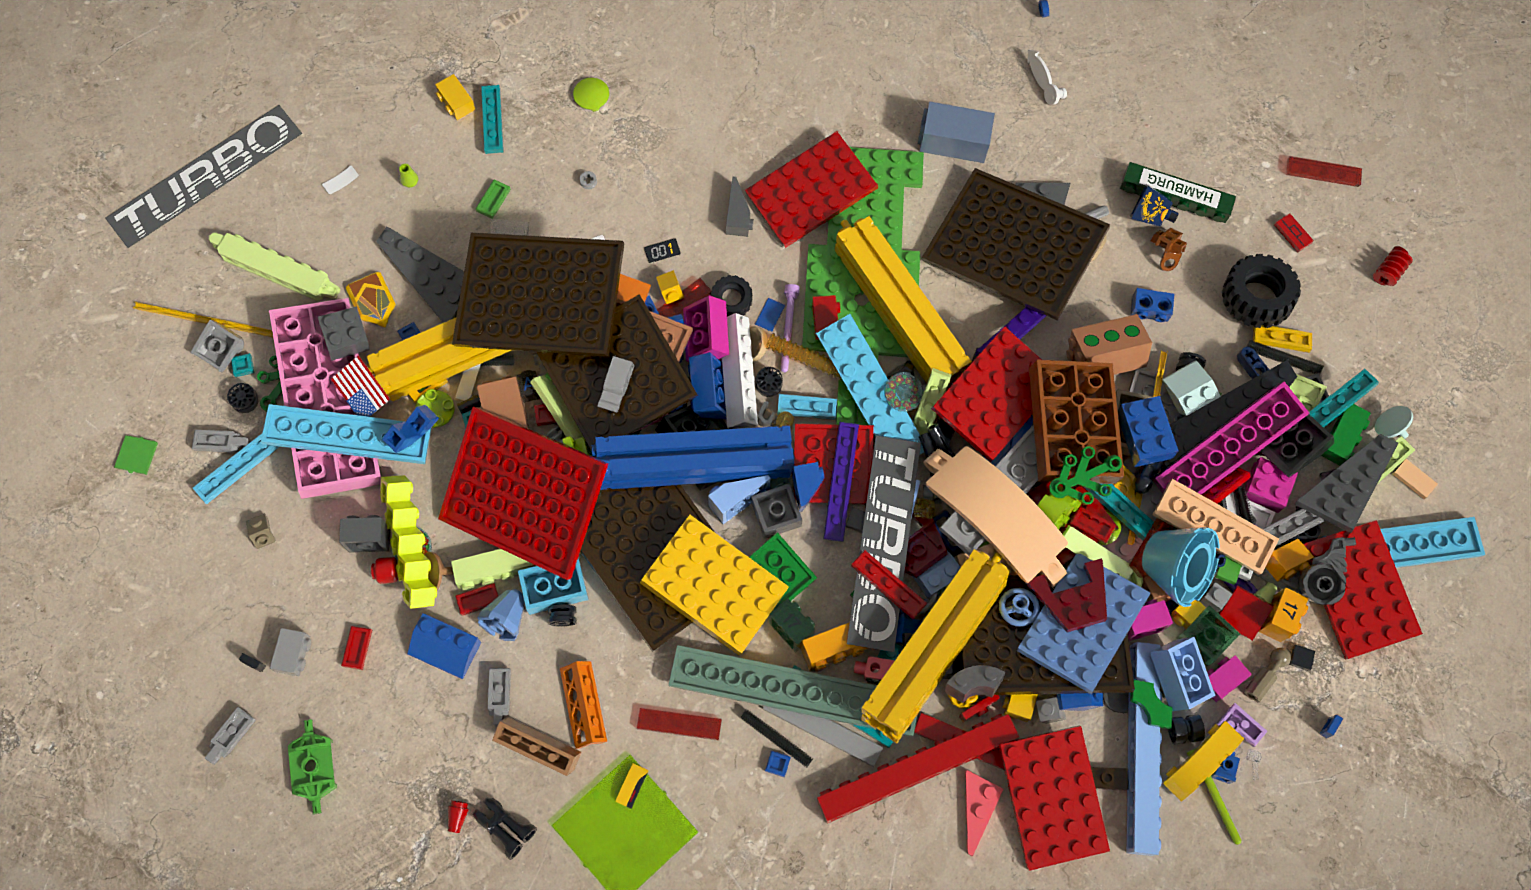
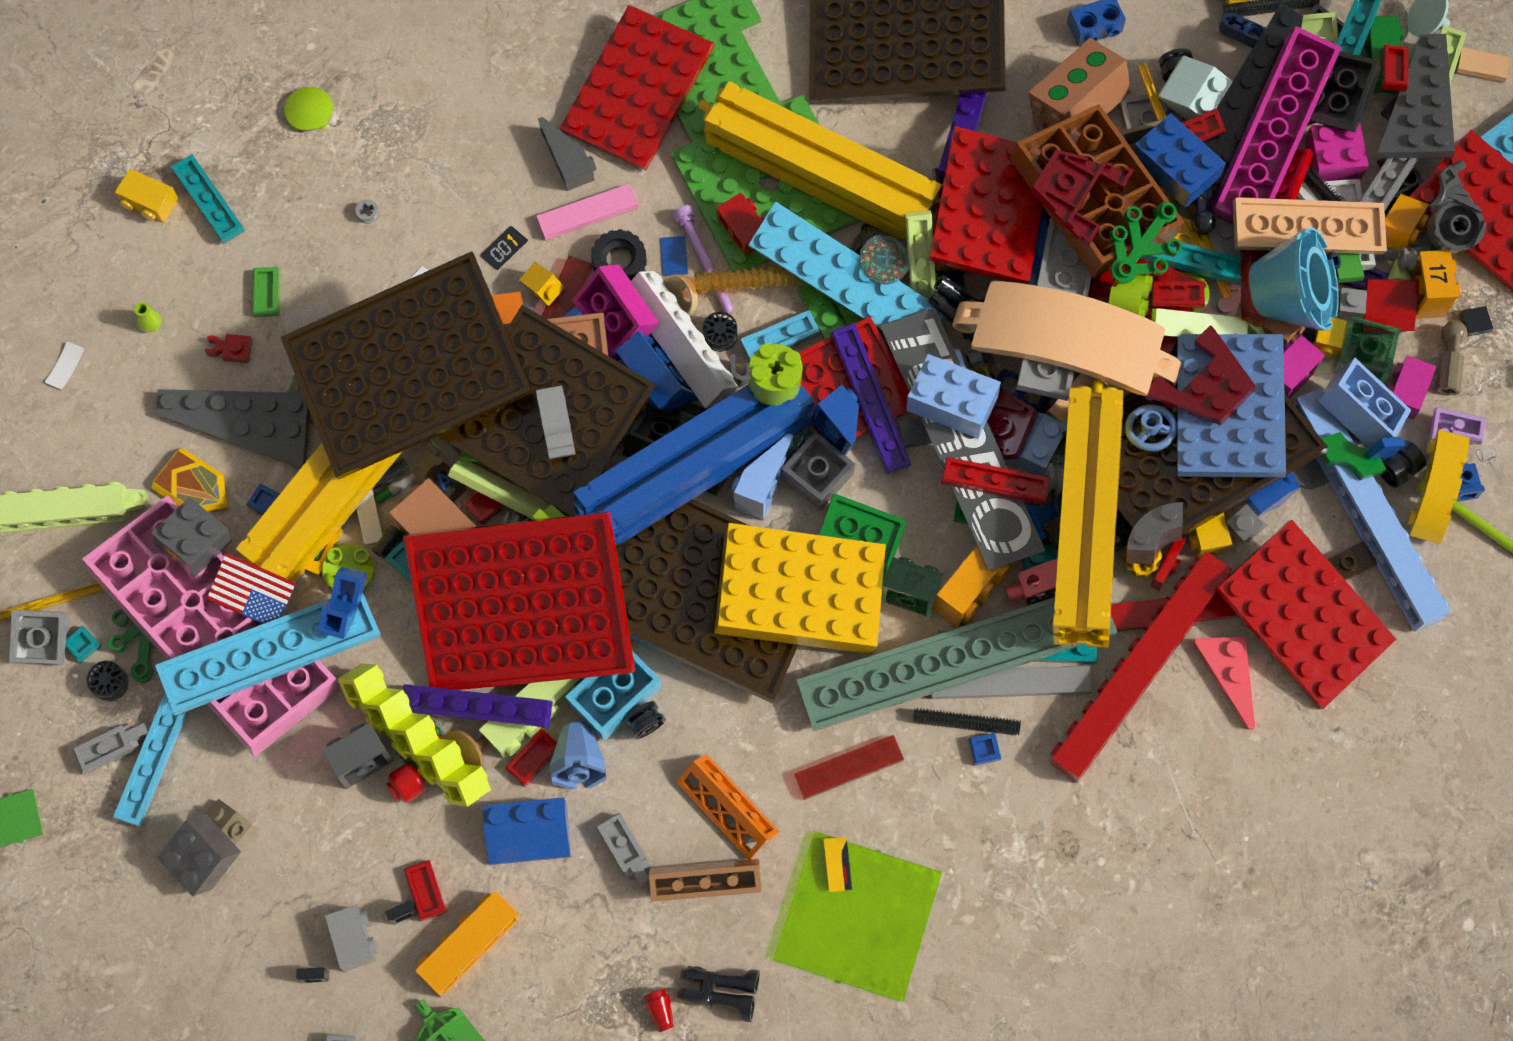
camera: 25 degrees left, 0 degrees up
(227, 543) = (199, 854): none -> flat silver brick
(331, 654) = (401, 912): none -> black tile
(360, 699) = (467, 943): none -> light orange brick
(450, 225) = (234, 348): none -> red plate
(459, 545) = (479, 706): none -> dark purple plate
(496, 371) = (395, 488): none -> light grey piece
(730, 255) = (587, 211): none -> bright pink tile
(785, 430) = (775, 374): none -> lime brick
(894, 510) = (953, 396): none -> light blue brick
(1053, 407) = (1066, 185): none -> dark red wing
(1178, 712) = (1385, 447): none -> blue tile
(1181, 417) = (1206, 125): none -> red plate
(1275, 587) = (1407, 258): none -> light grey bush
(1345, 447) = (1394, 68): none -> red tile

